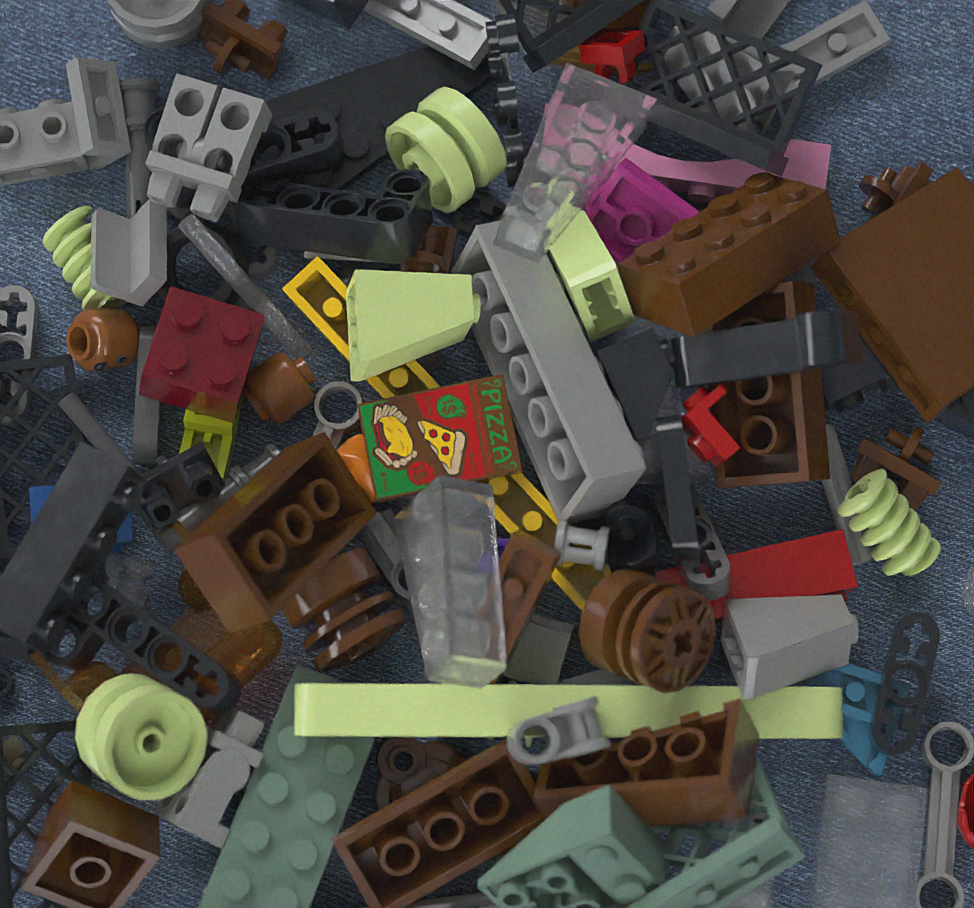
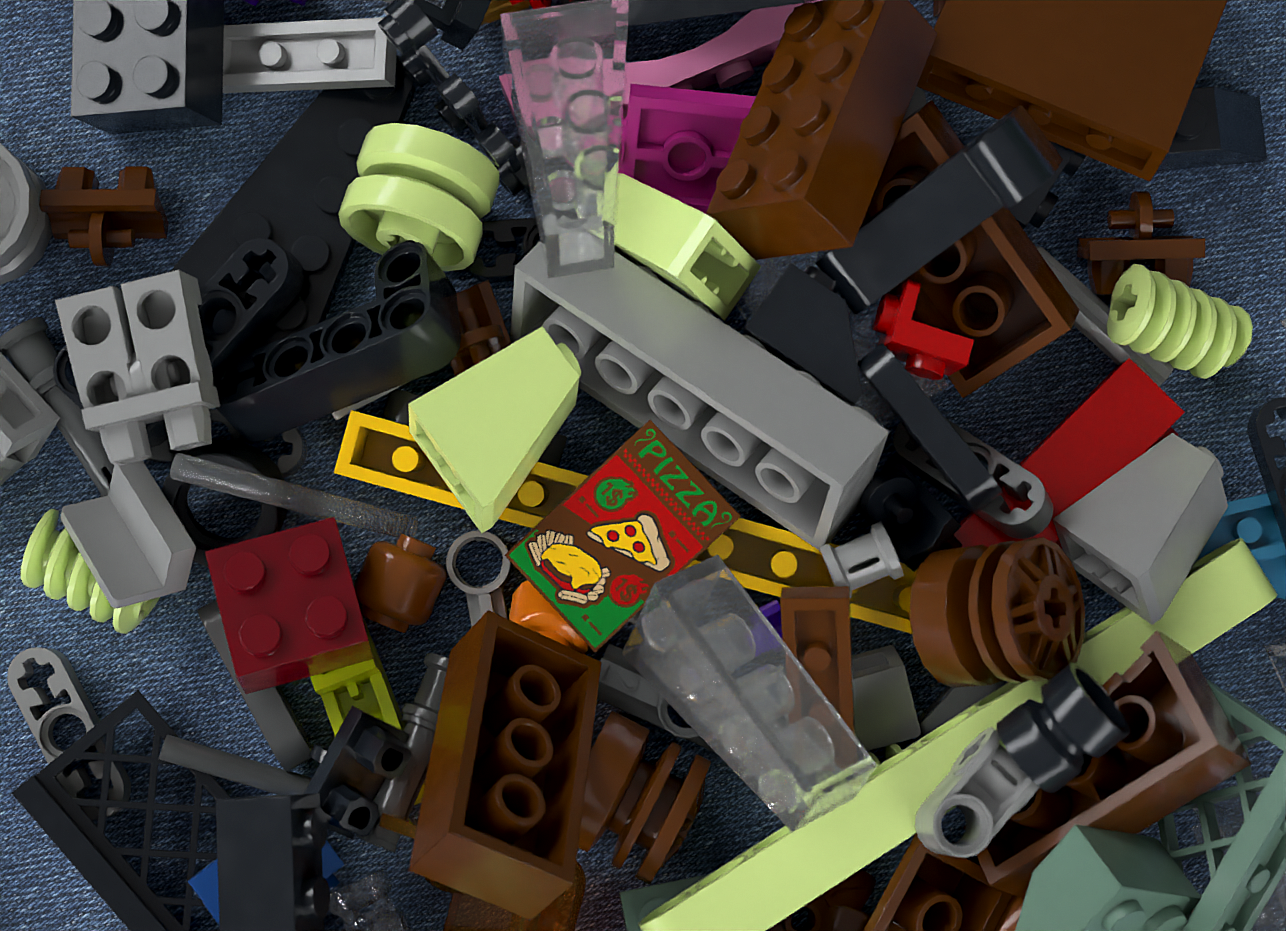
camera: 30 degrees left, 5 degrees up
(103, 339) = (164, 652): dark orange head -> none
(631, 721) = (1055, 734): none -> black wheel

